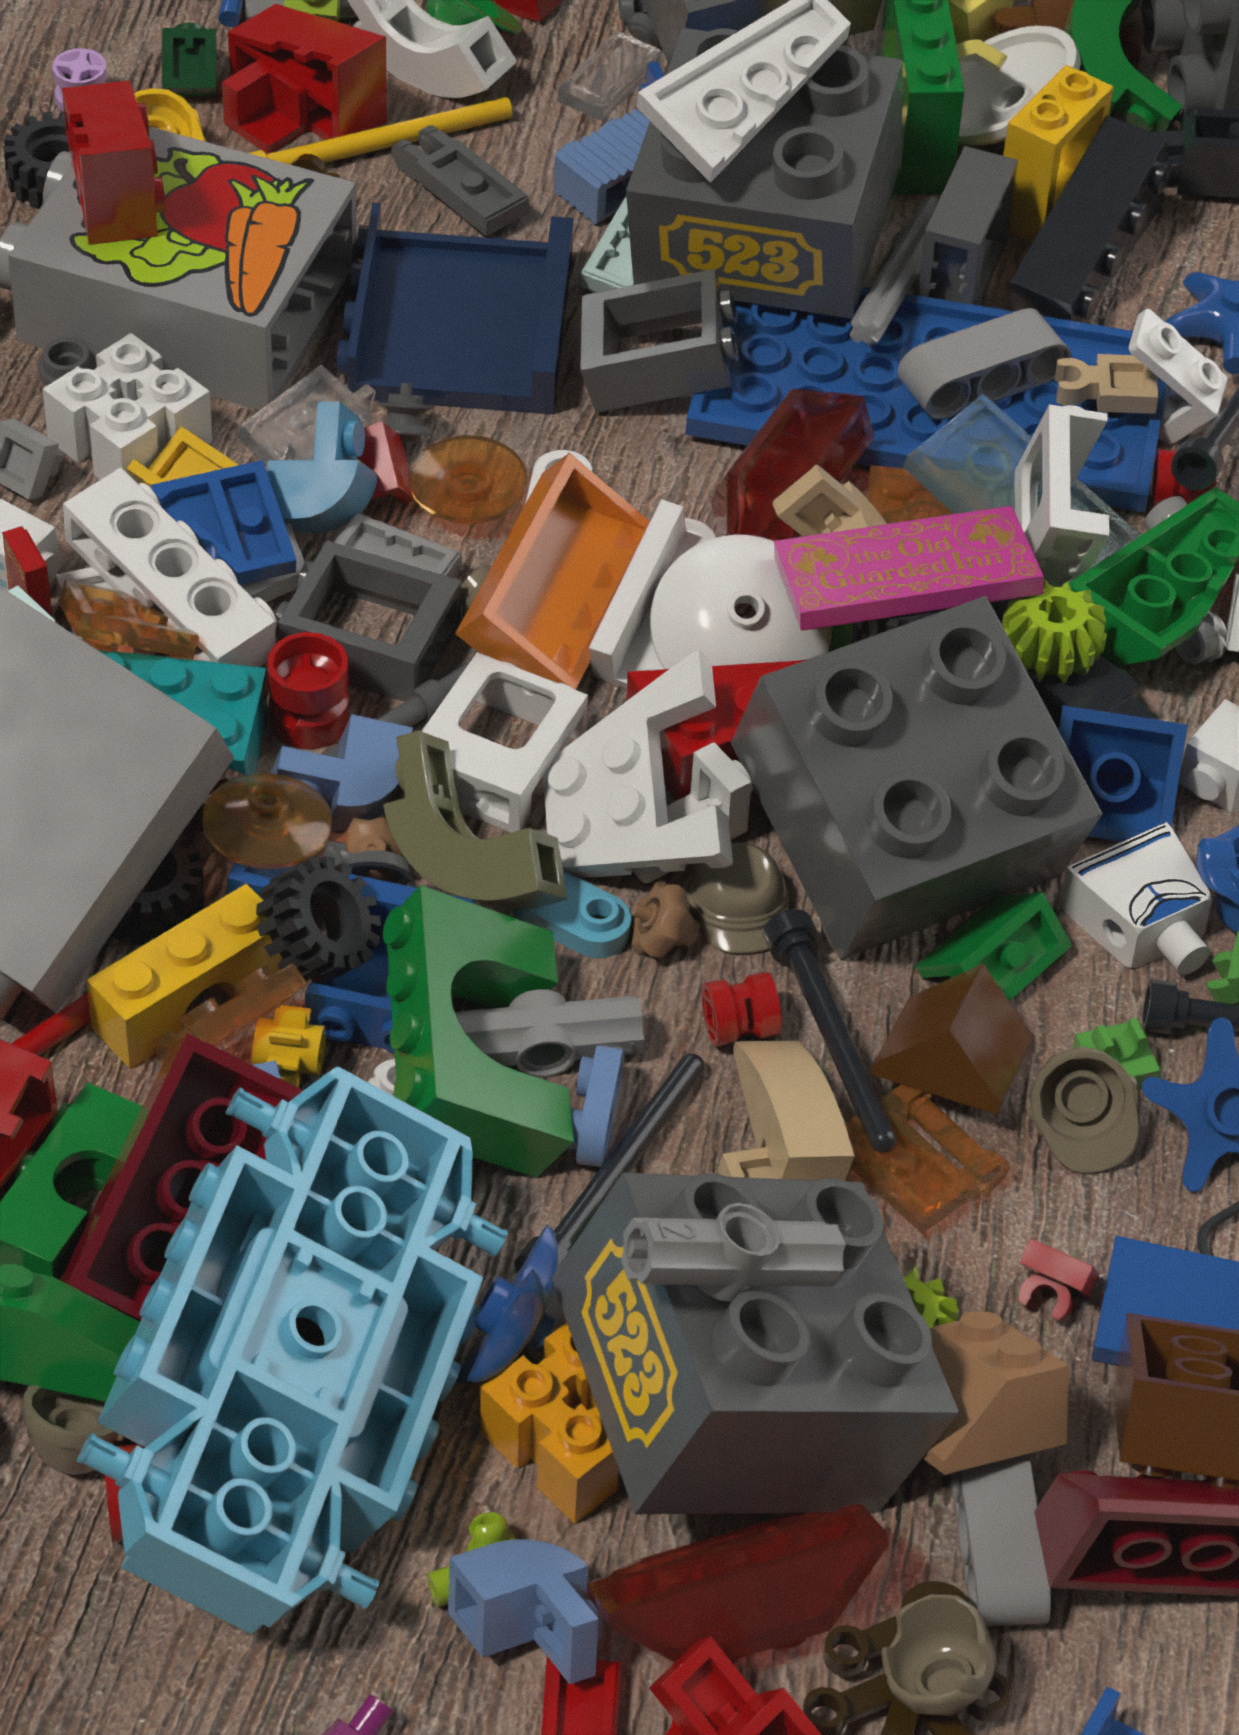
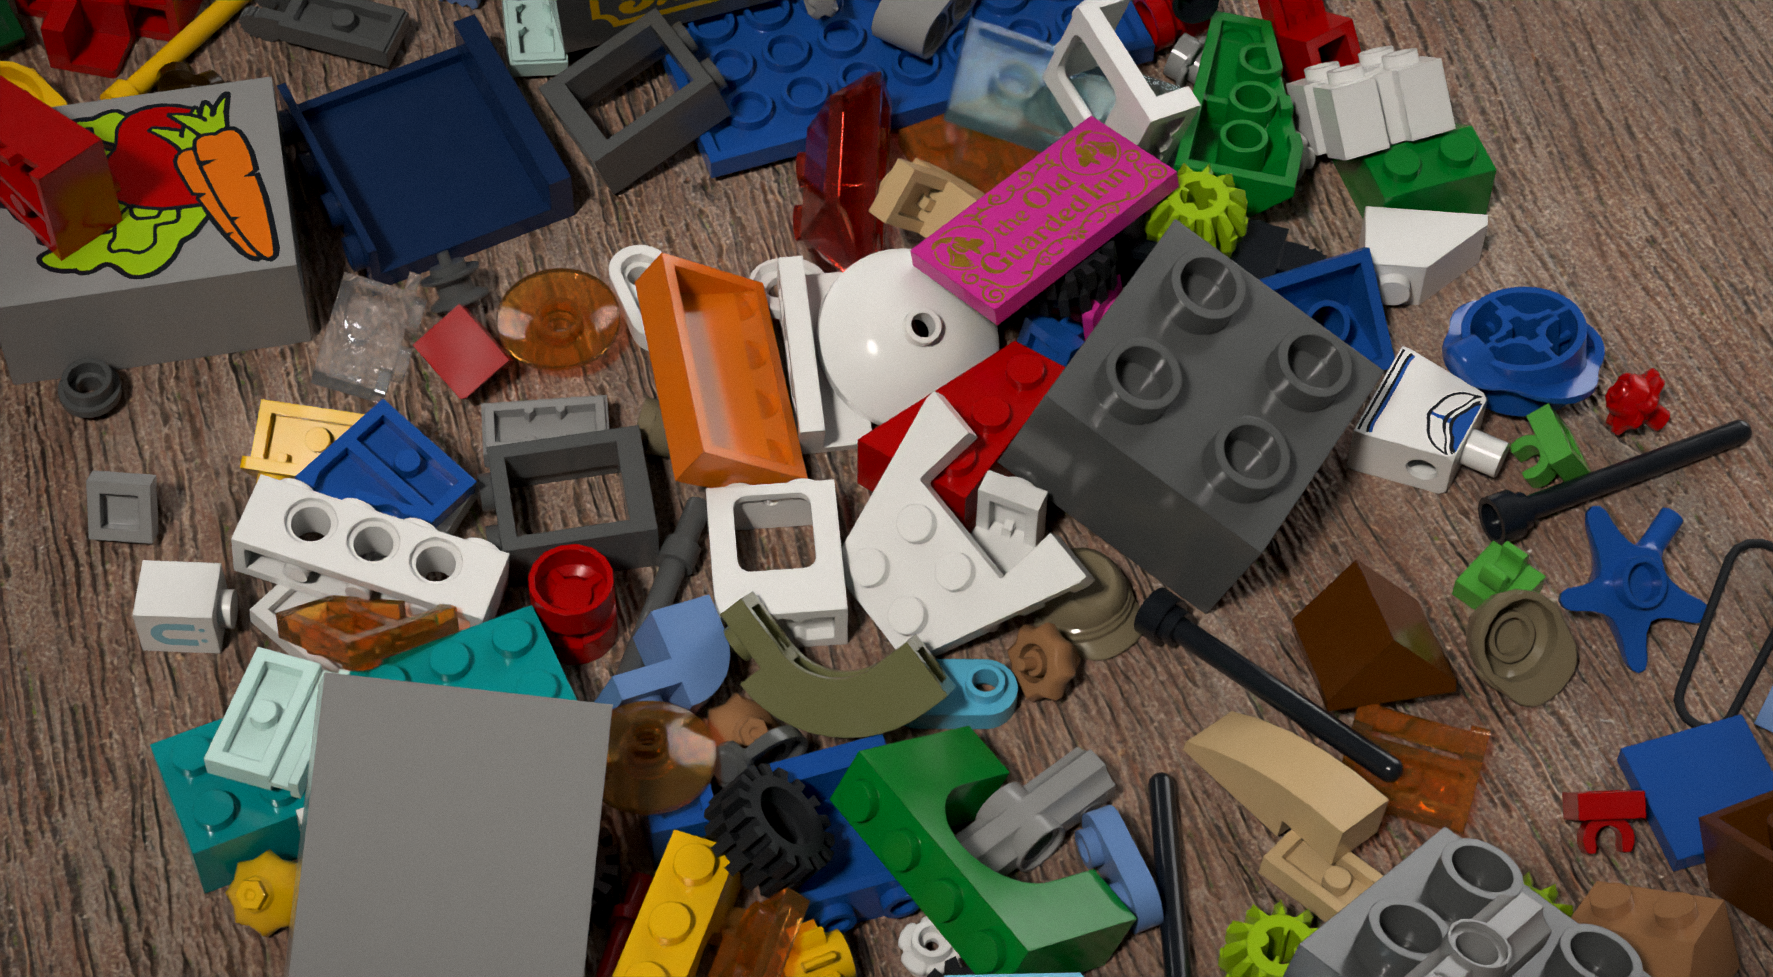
camera: 30 degrees left, 5 degrees up
(26, 567) = (236, 629): red tile -> none
(124, 408) = (191, 411): white brick -> none
(334, 485) = (452, 392): dark azure brick -> none
(741, 1009) = (1169, 711): red wheel -> none
(1009, 935) = (1329, 528): green panel -> none

